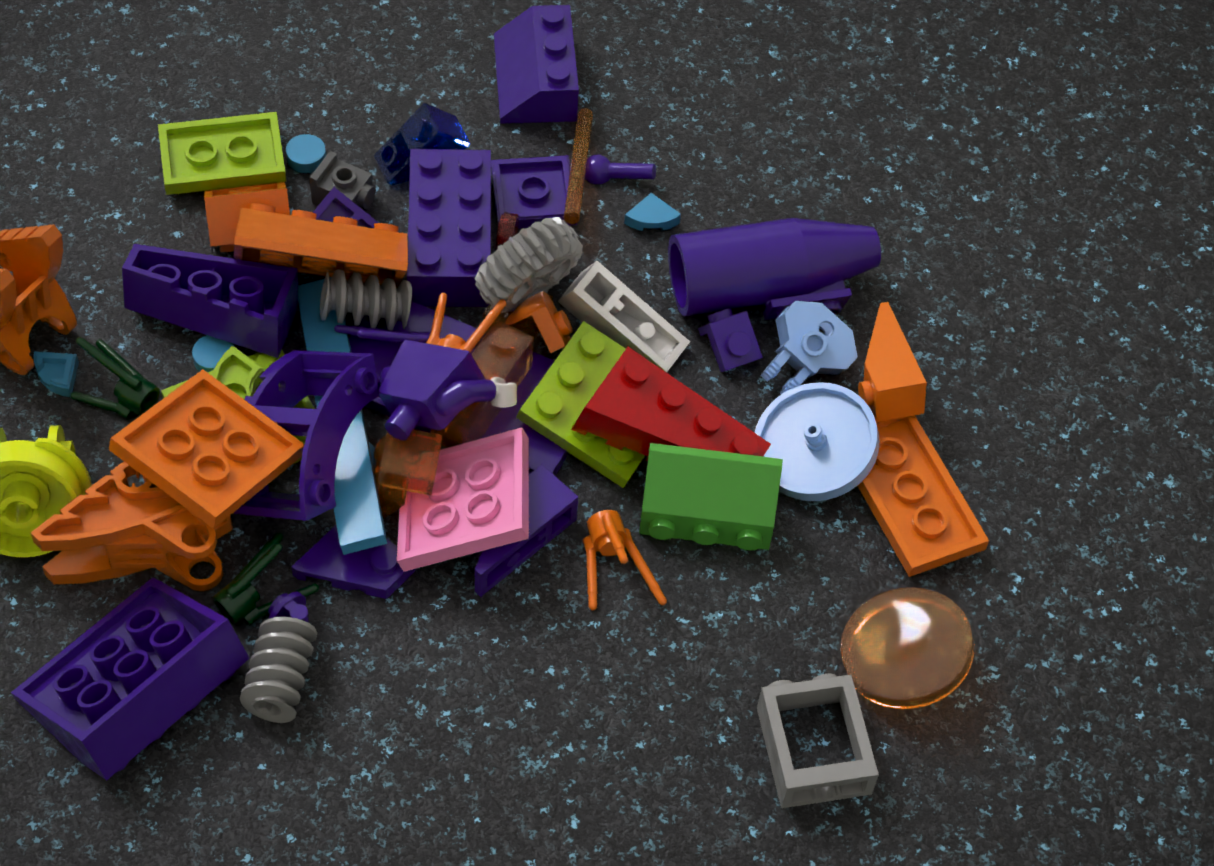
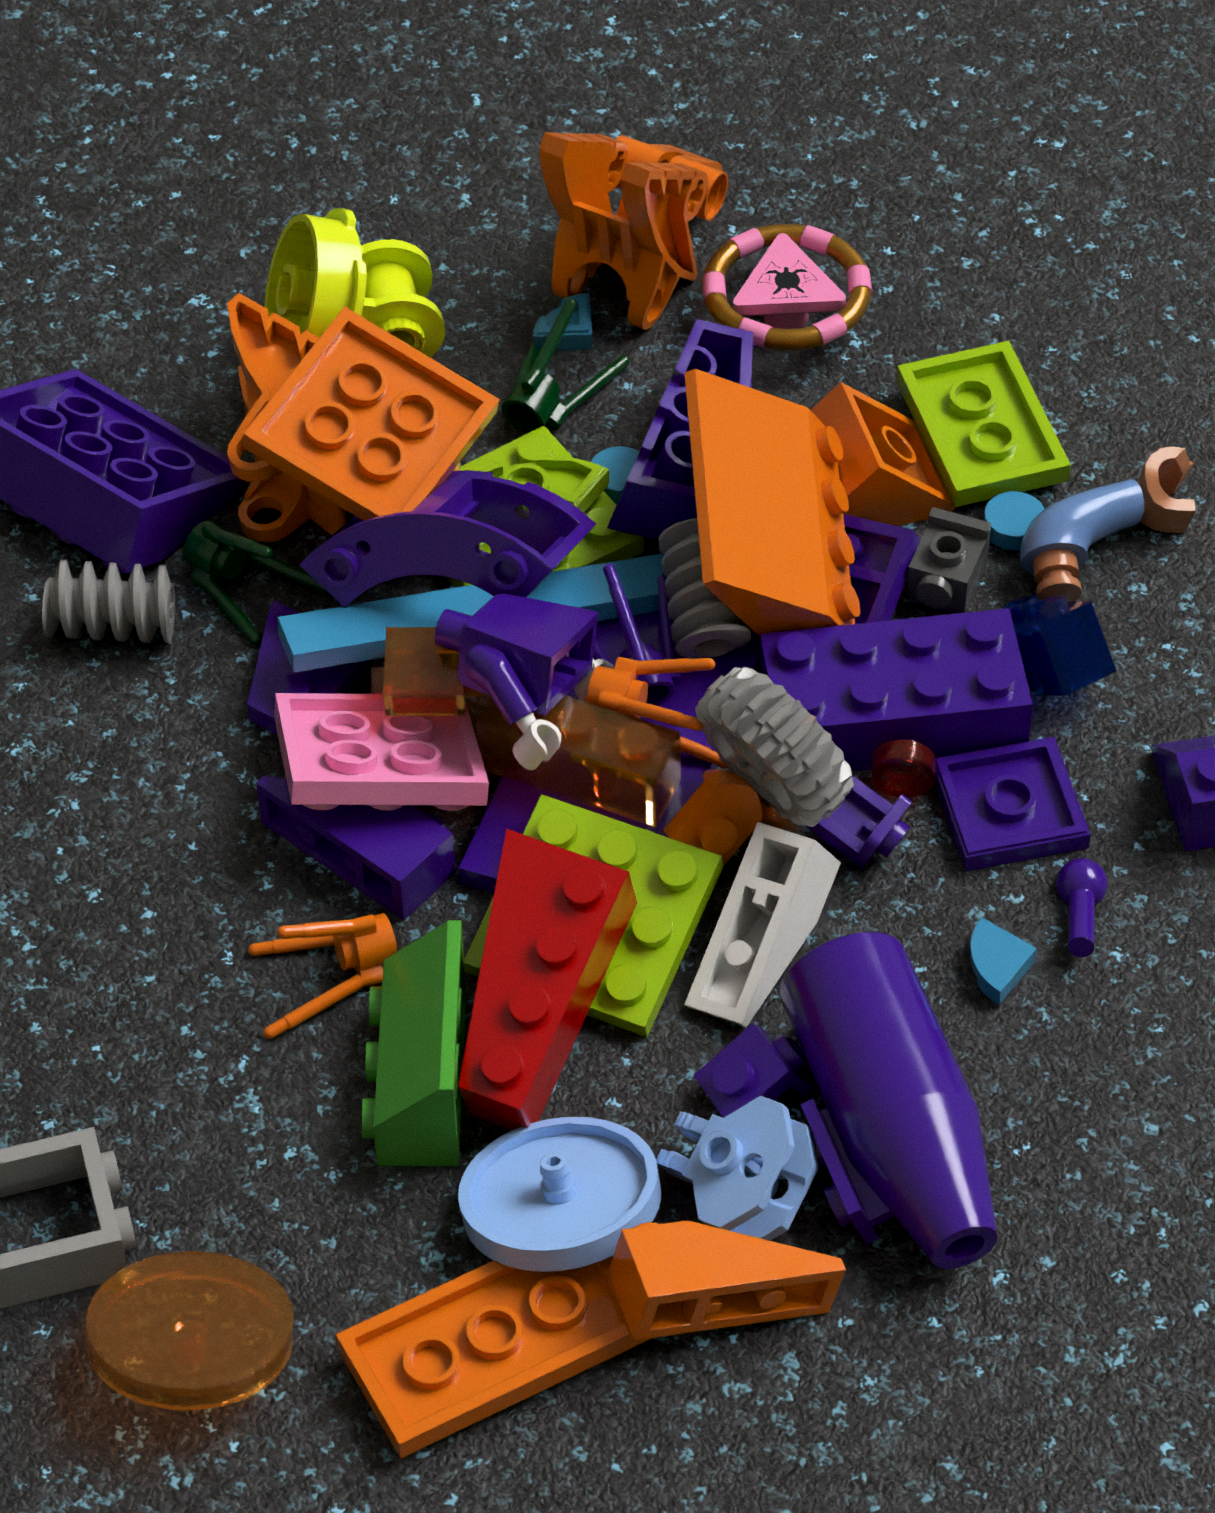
camera: 90 degrees right, 5 degrees down
(82, 227) = (788, 287): none -> bright pink piece
(289, 606) = (195, 606): dark purple plate -> none
(329, 114) = (1063, 532): none -> piece
(578, 166) = (1066, 844): clear orange bar -> none

